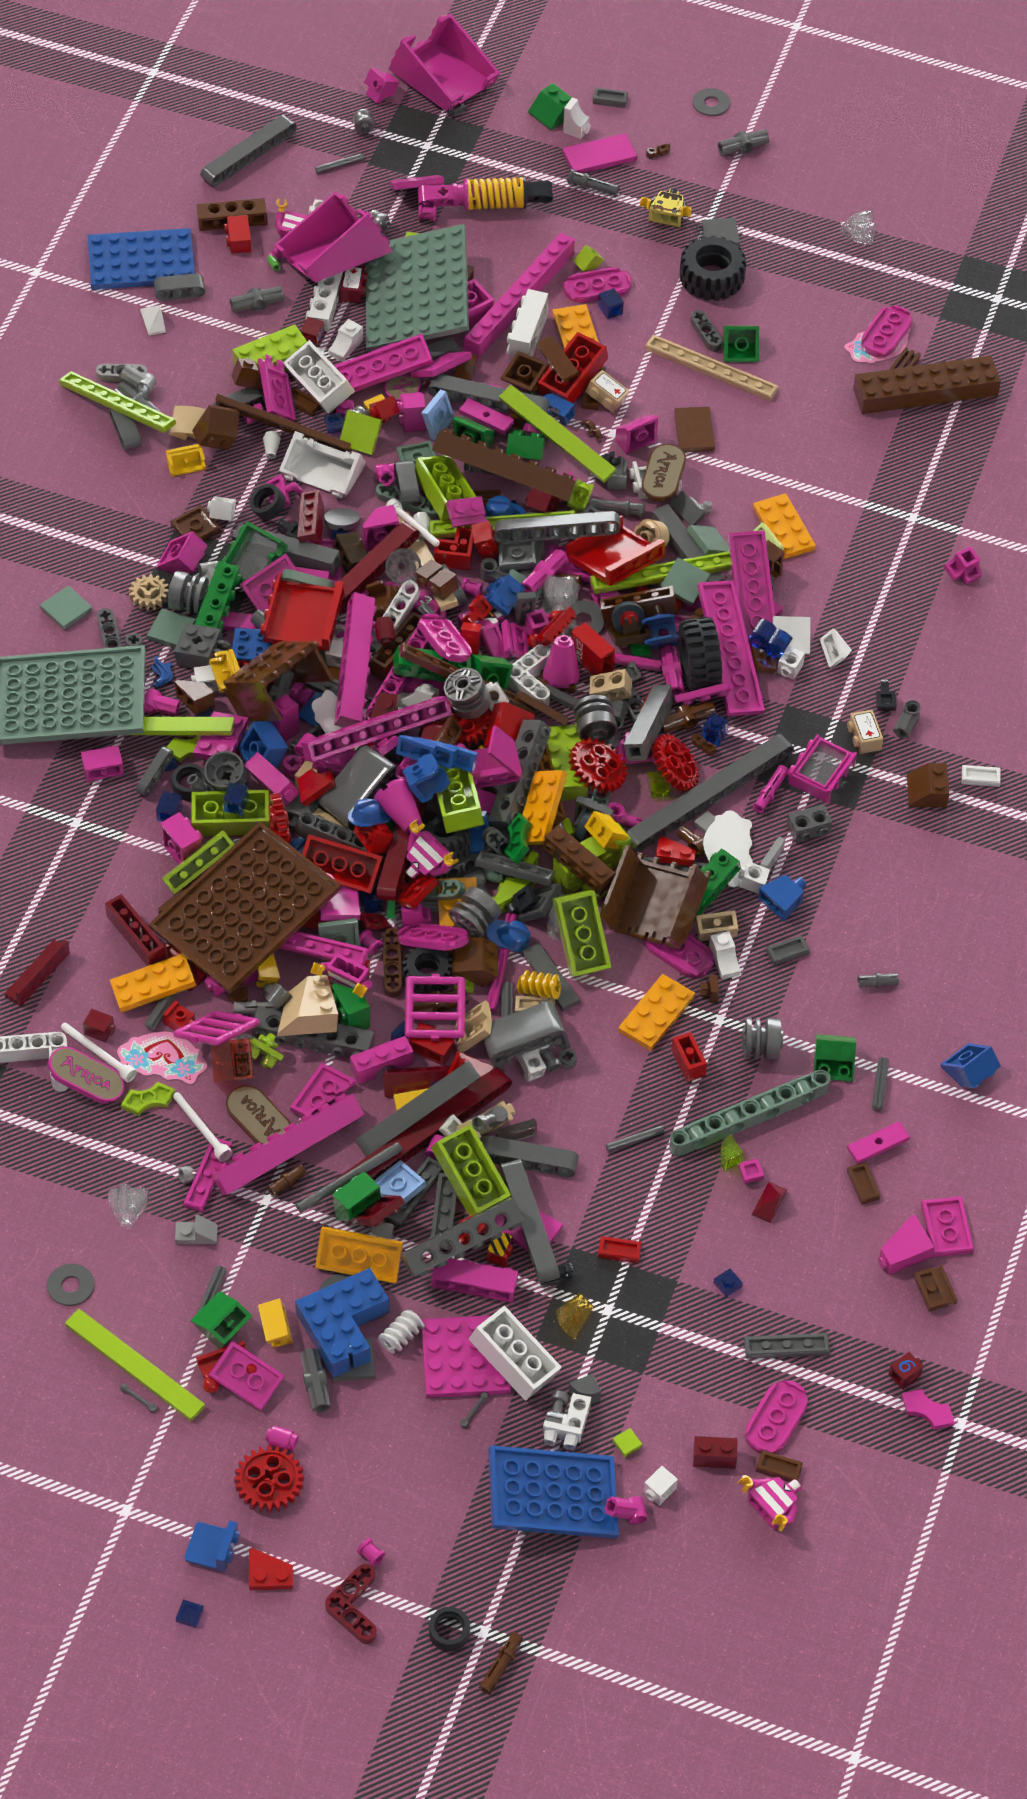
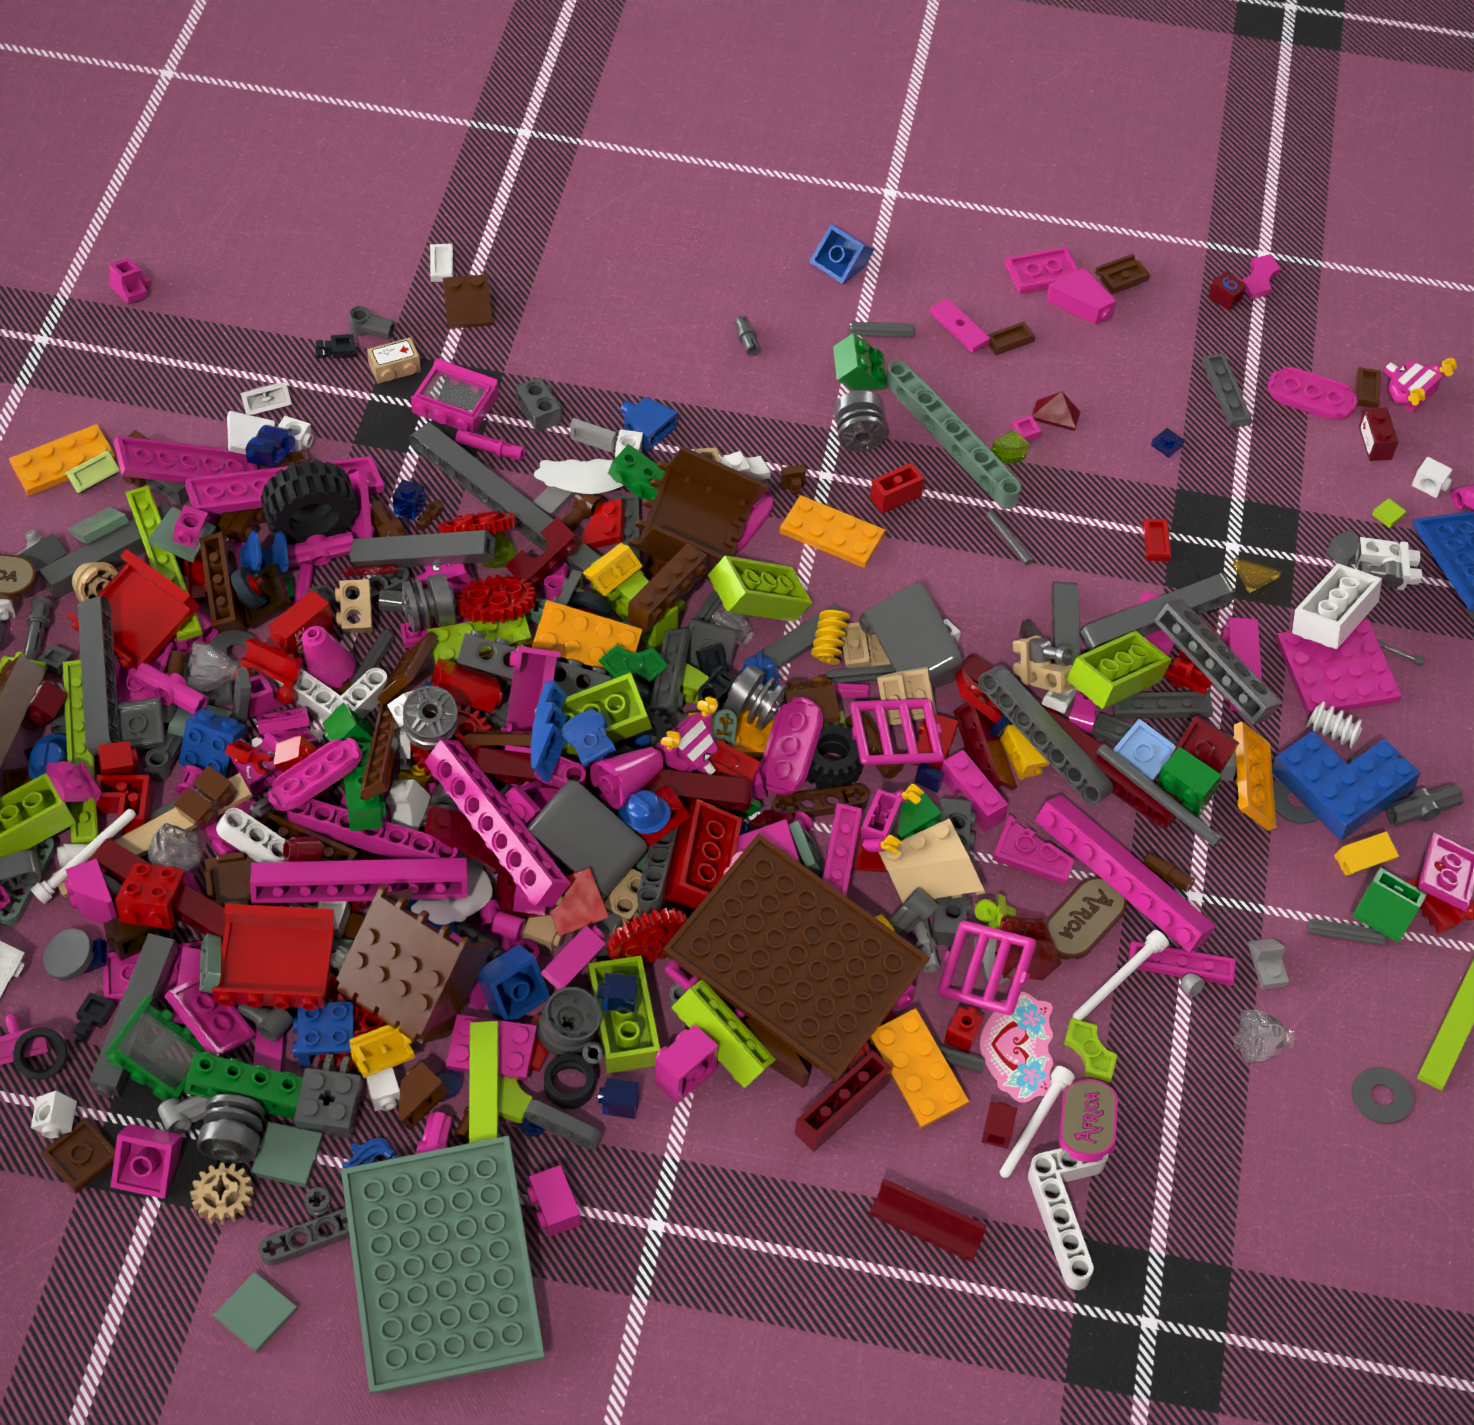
camera: 100 degrees left, 0 degrees up
(311, 517) = (77, 985): dark red panel -> none
(367, 547) = (148, 895): none -> red bracket
(492, 889) = (717, 686): none -> black piece
(637, 802) = (560, 545): none -> dark red arch
(682, 586) = (190, 526): none -> dark pink brick
(787, 950) = (719, 418): dark grey tile -> none

